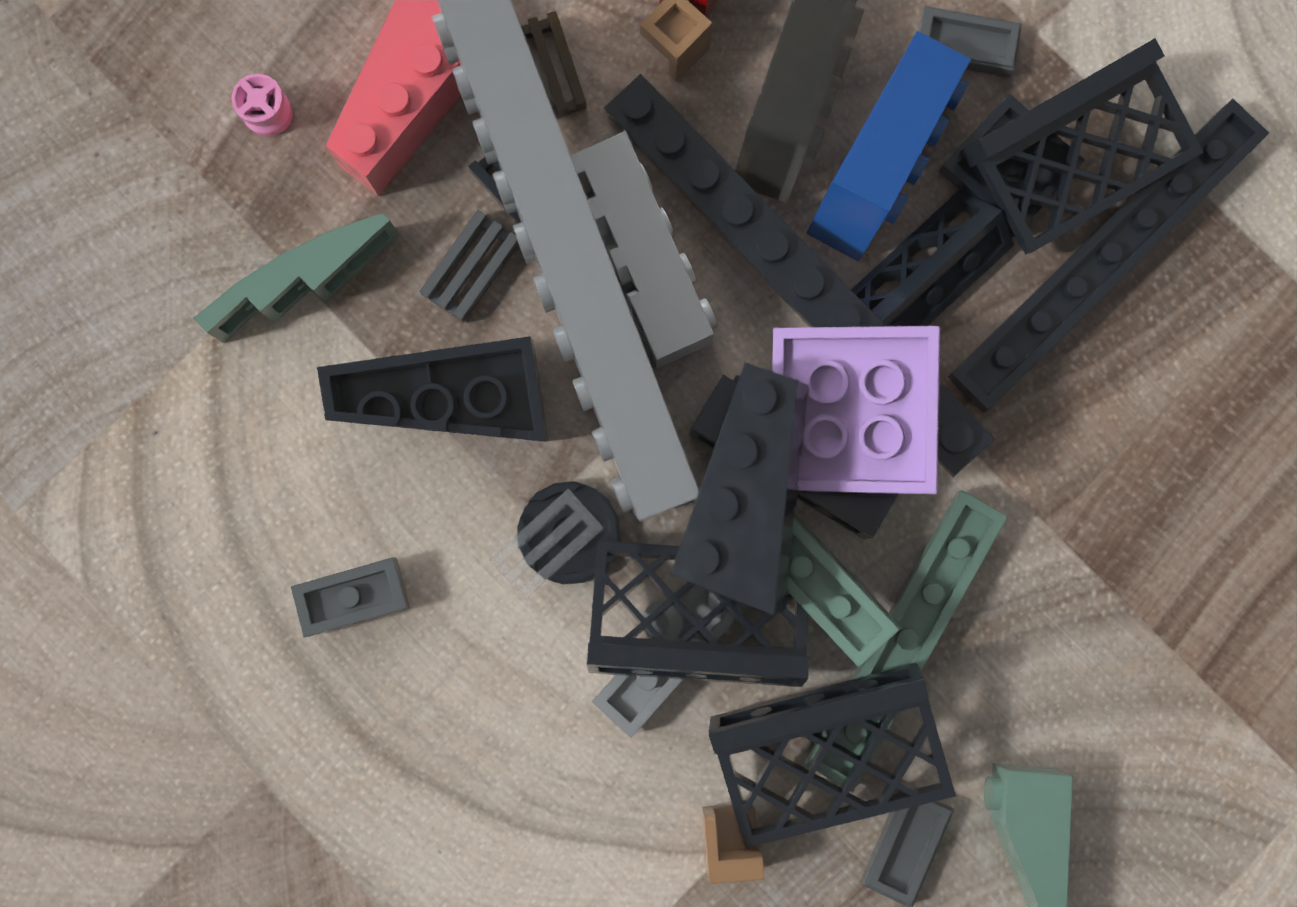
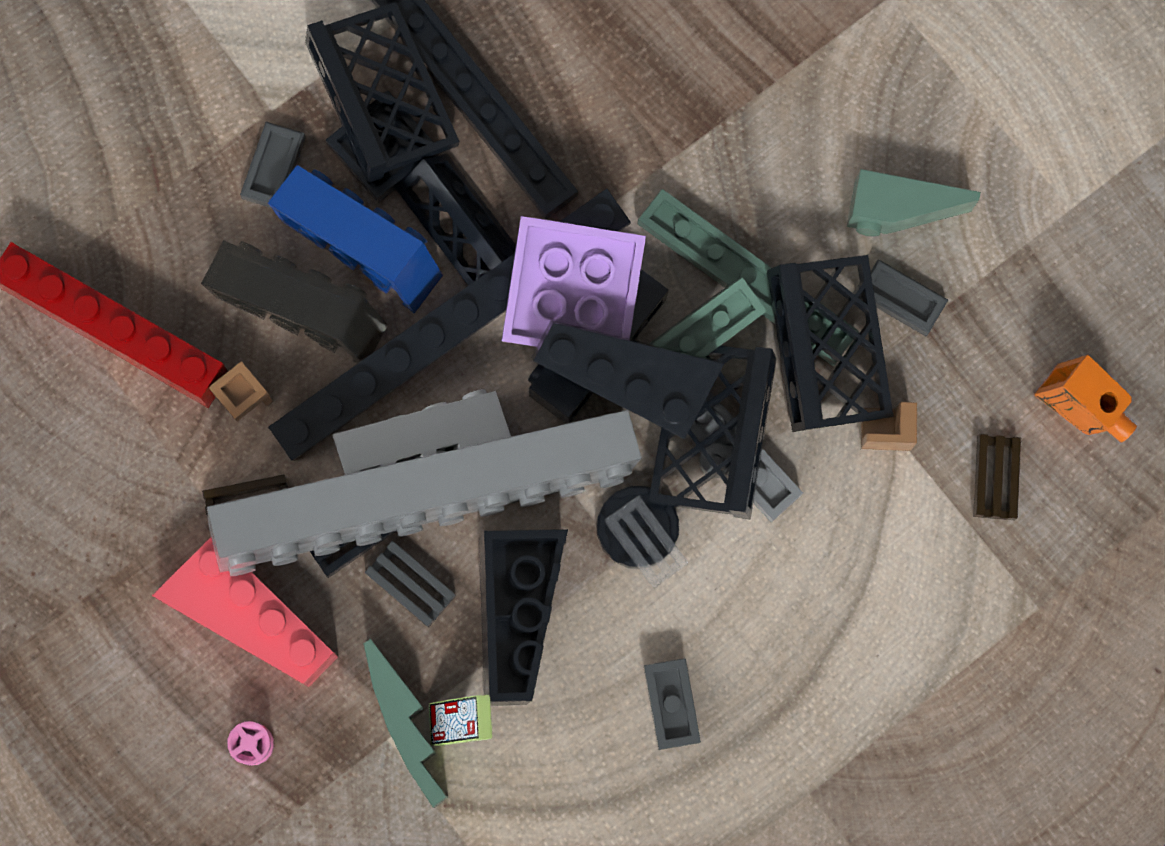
camera: 85 degrees left, 5 degrees down
(300, 340) = (460, 720): none -> tile

